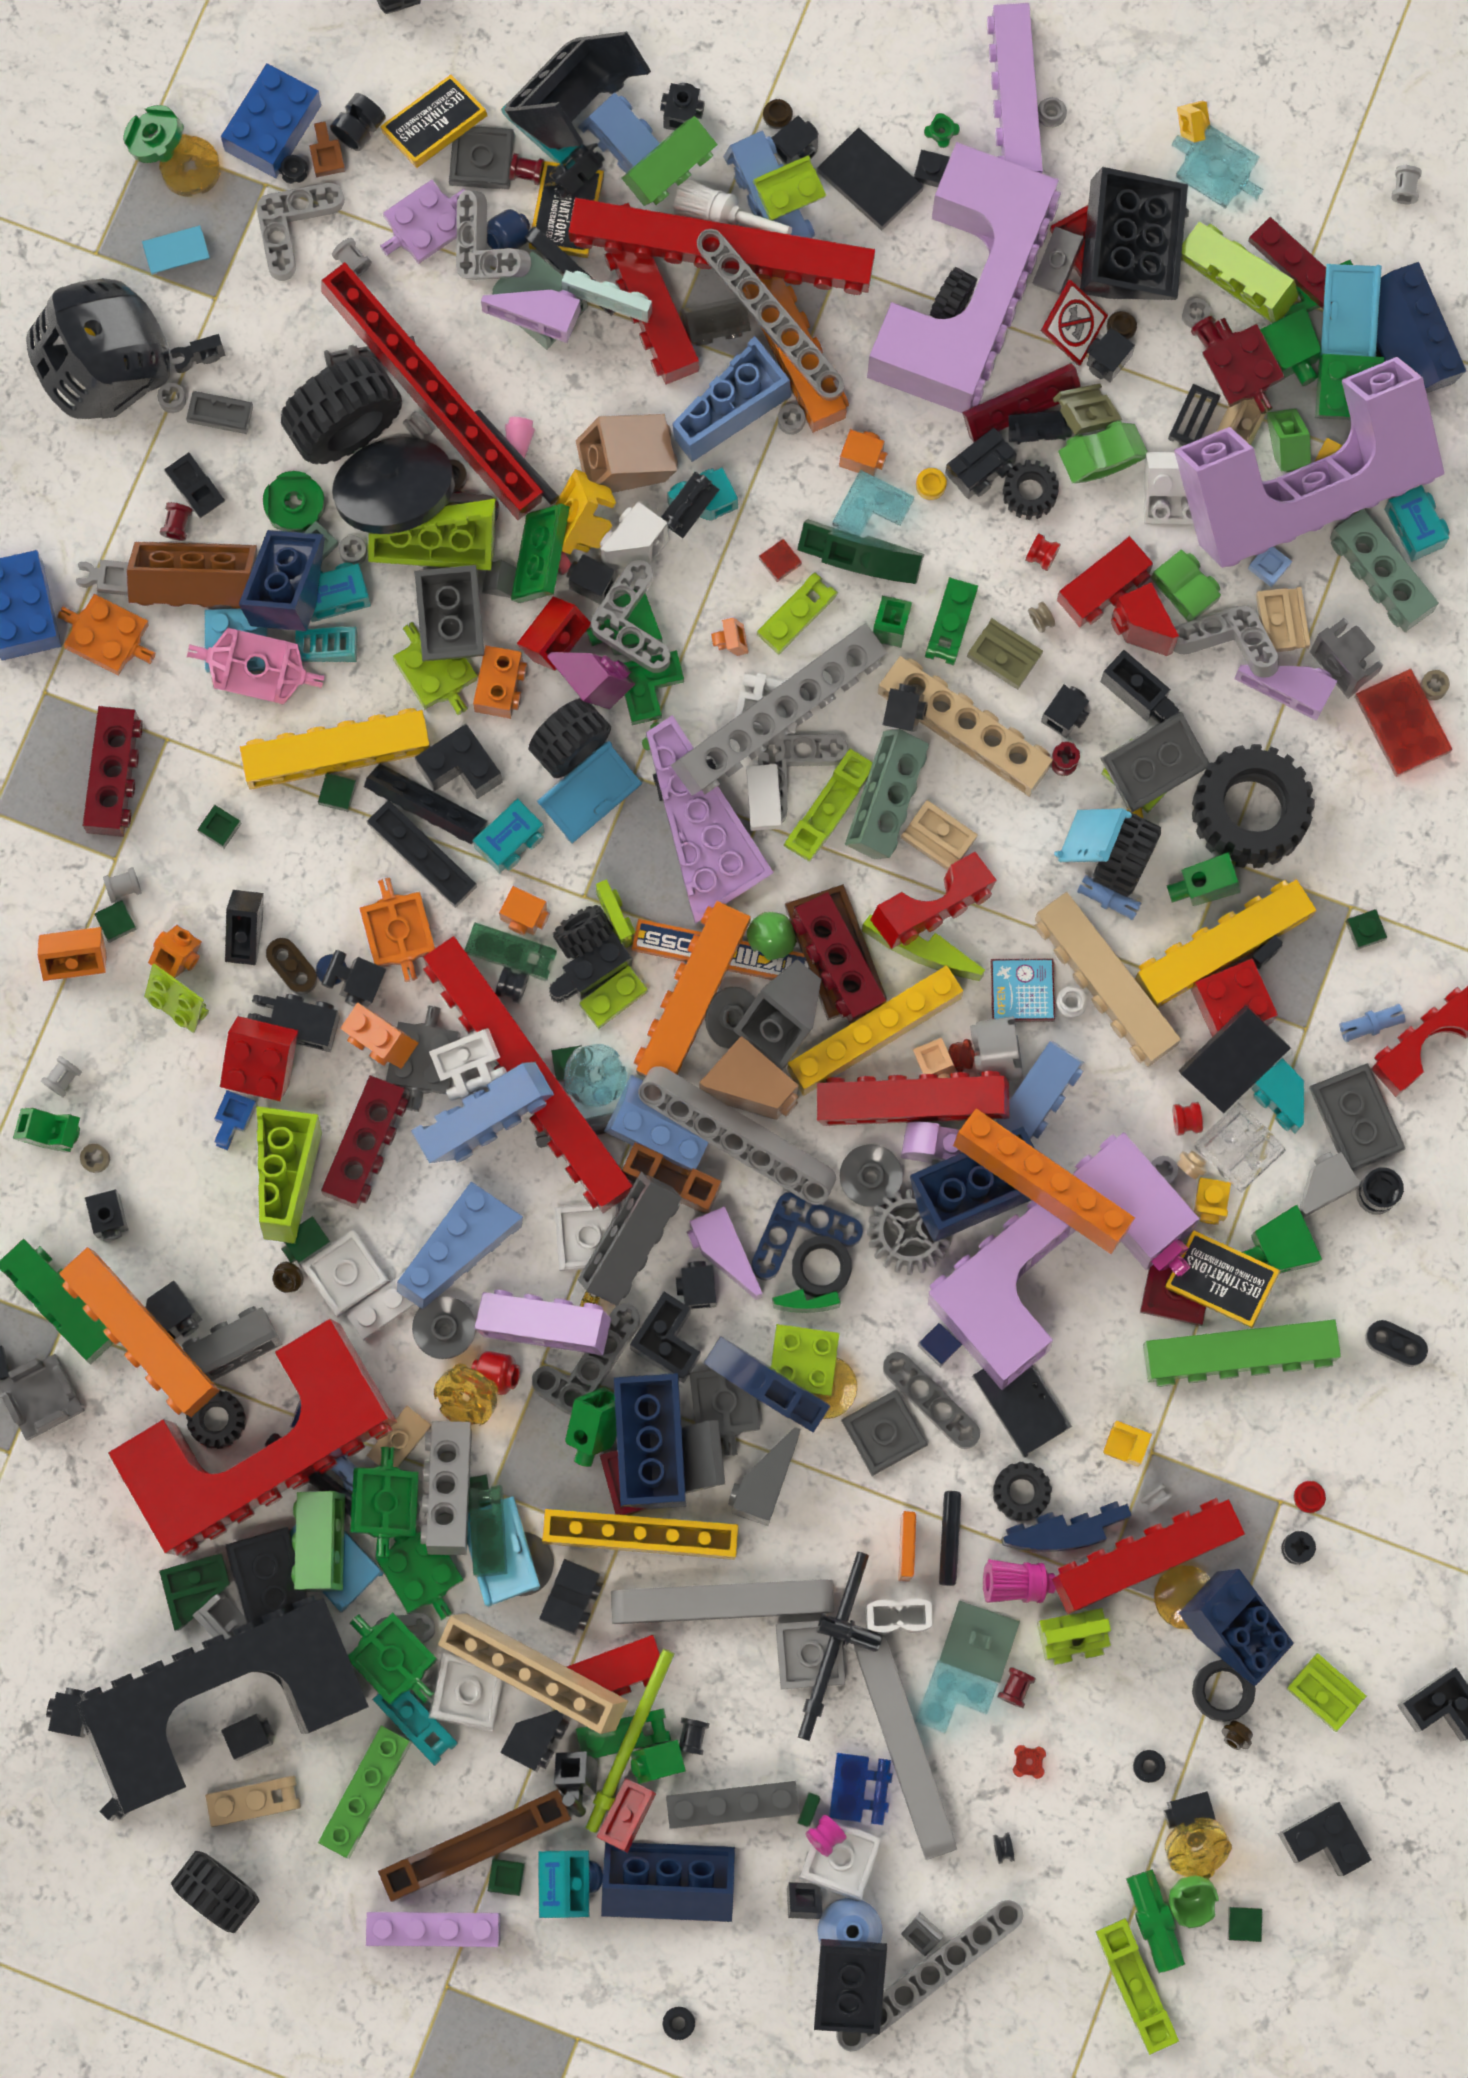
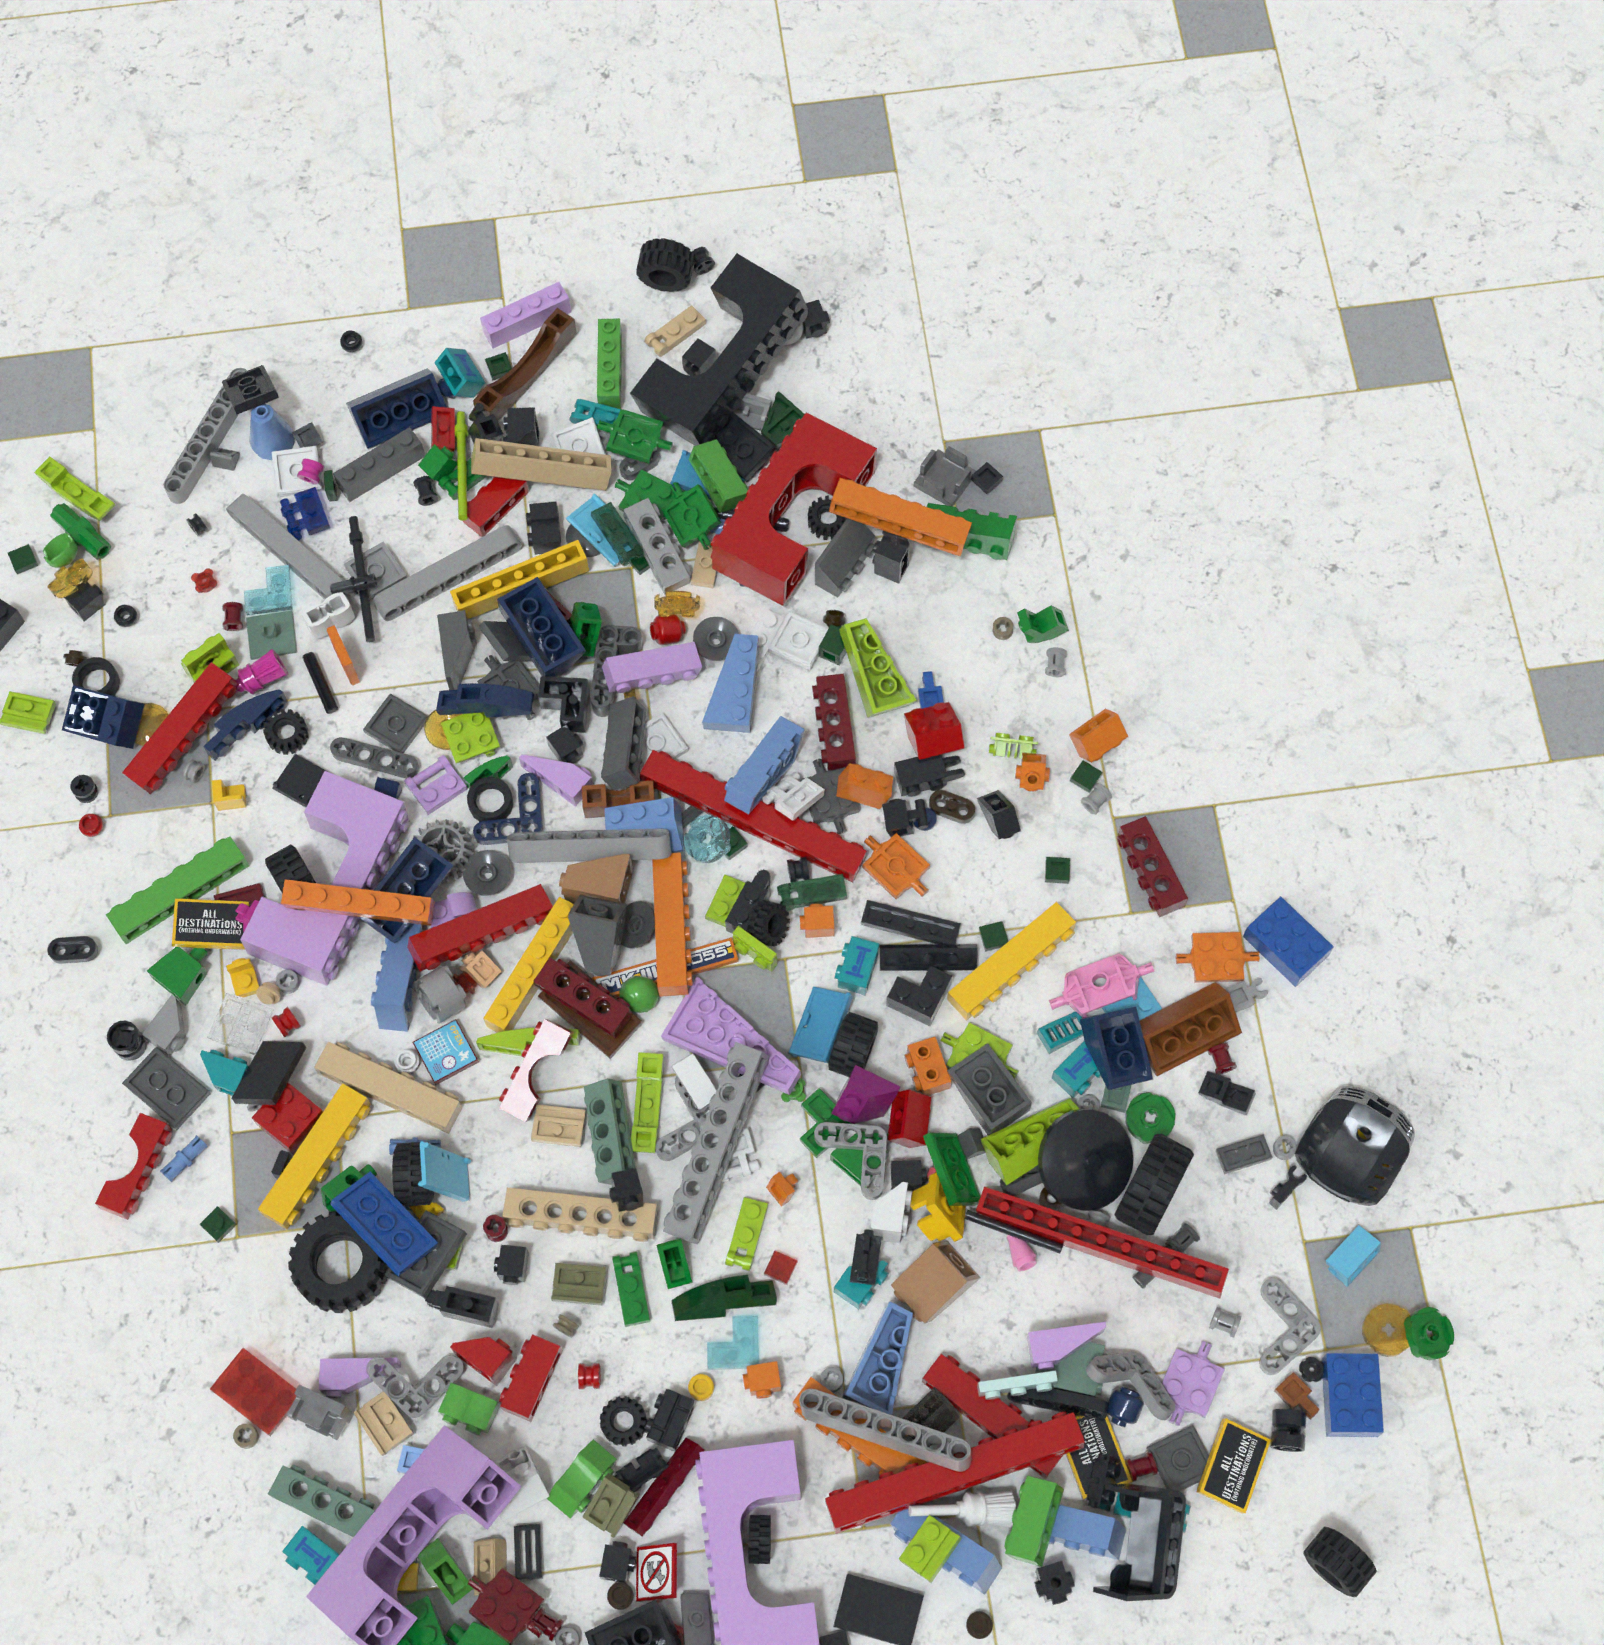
camera: 155 degrees right, 10 degrees down
(106, 1215) = (972, 596): black brick -> none
(160, 1887) = (702, 262): none -> black wheel
(796, 141) = (950, 1605): black brick -> none
(874, 1315) = (440, 790): none -> lavender plate
(1101, 1282) = (288, 865): none -> black tyre
(1187, 804) = (384, 1223): none -> blue plate

